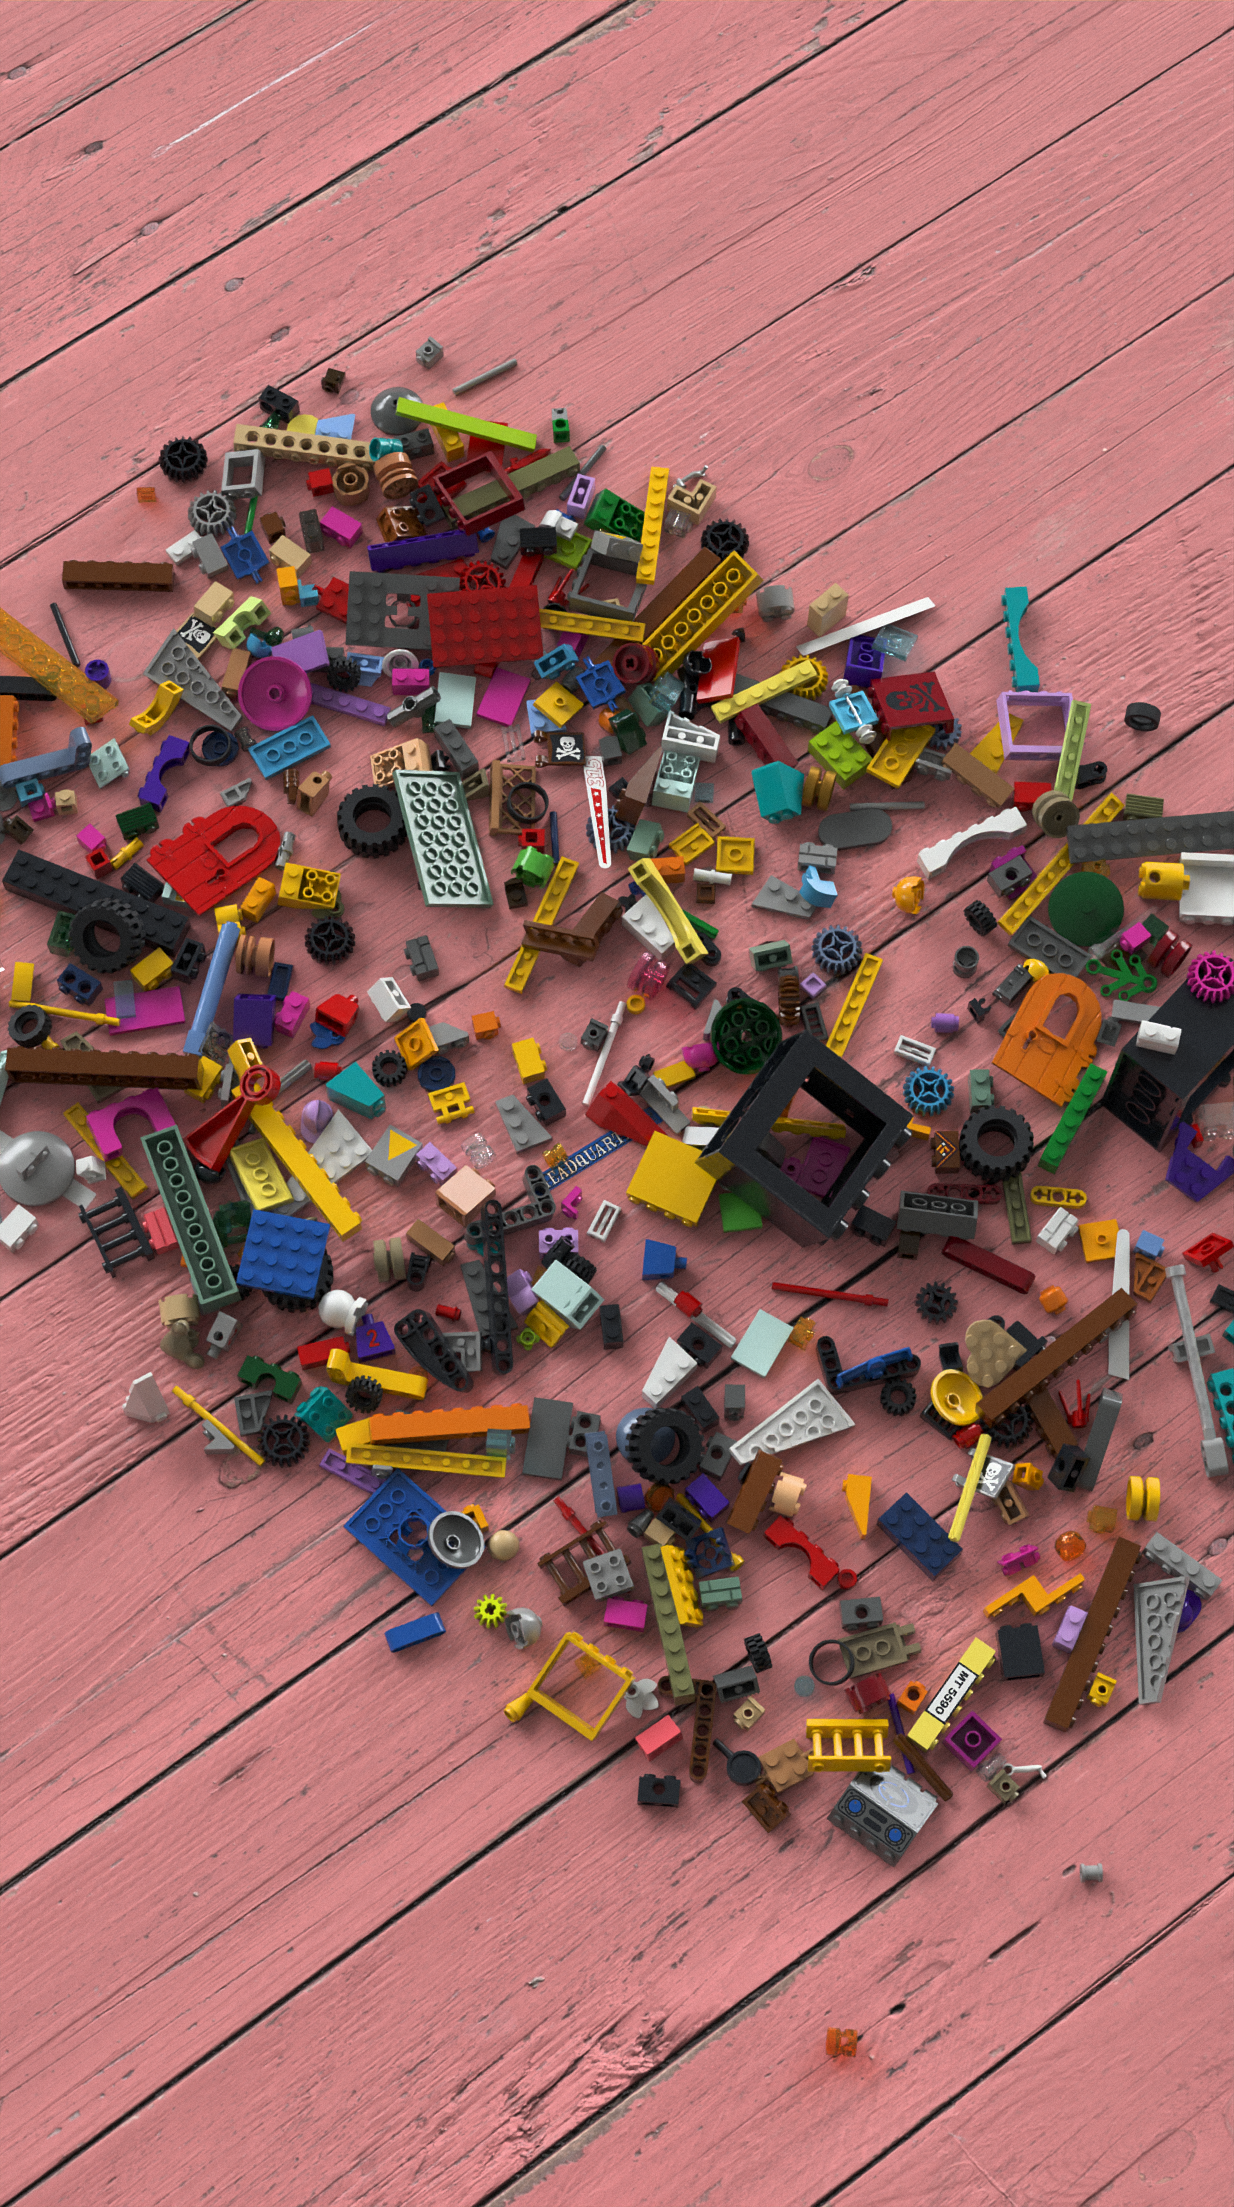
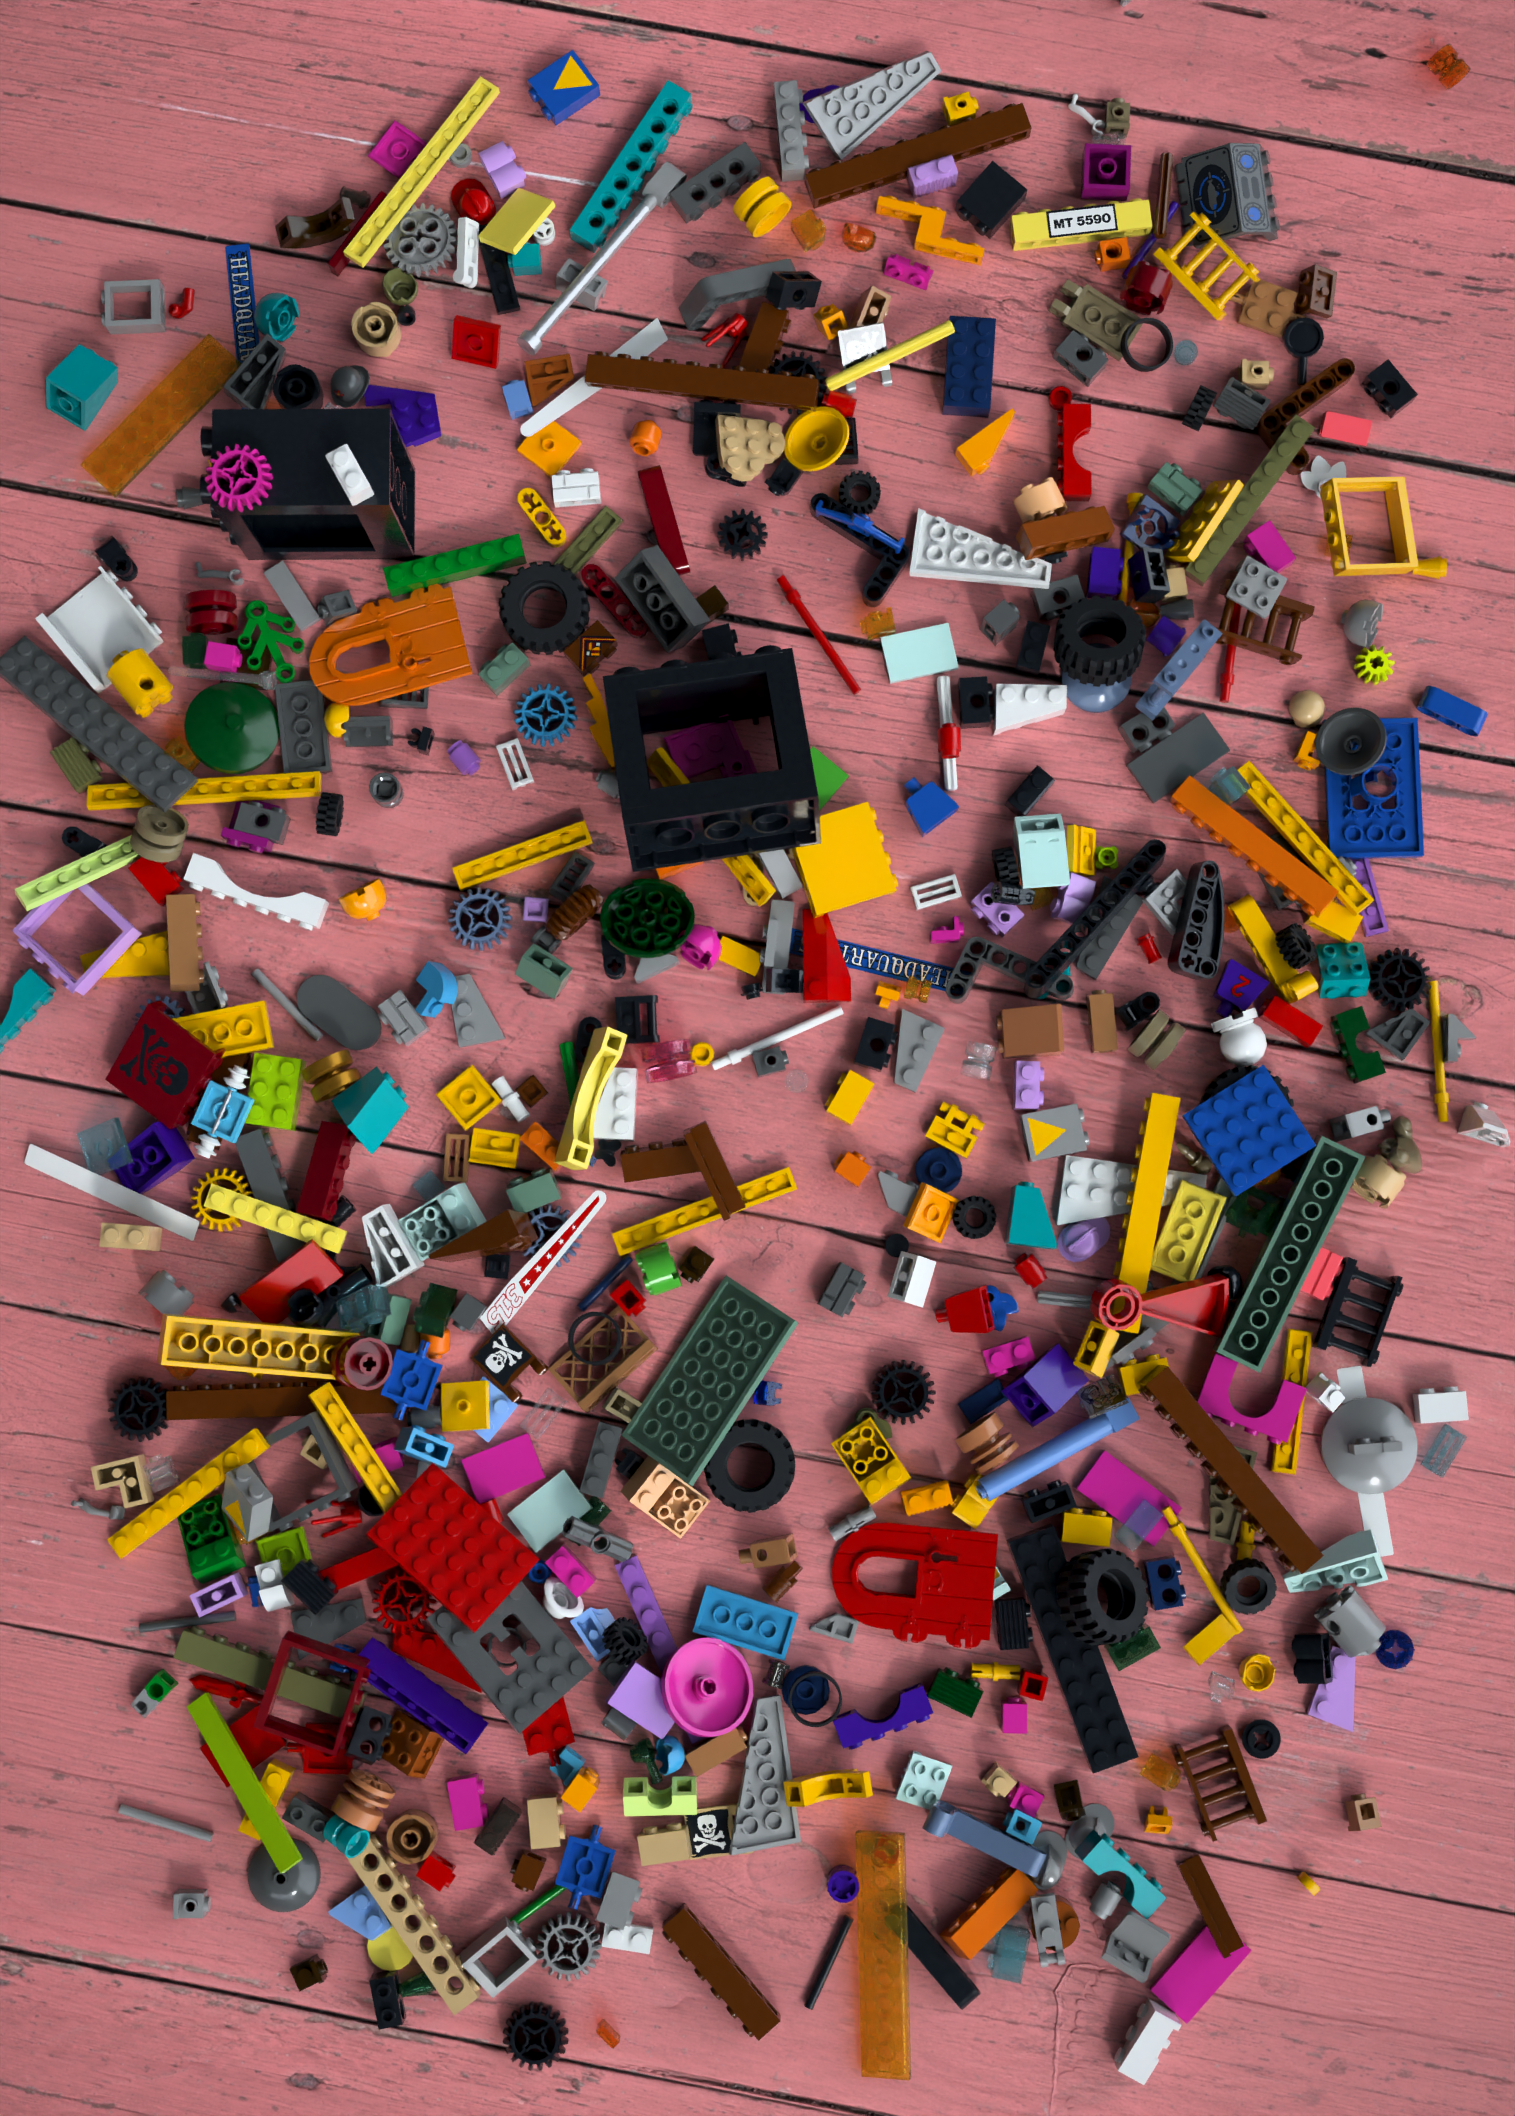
camera: 130 degrees left, 15 degrees up
(405, 867) = (765, 1393): none -> clear blue tile
(569, 1137) = (887, 992): none -> light orange tile
(1194, 1460) = (701, 184): none -> dark grey brick

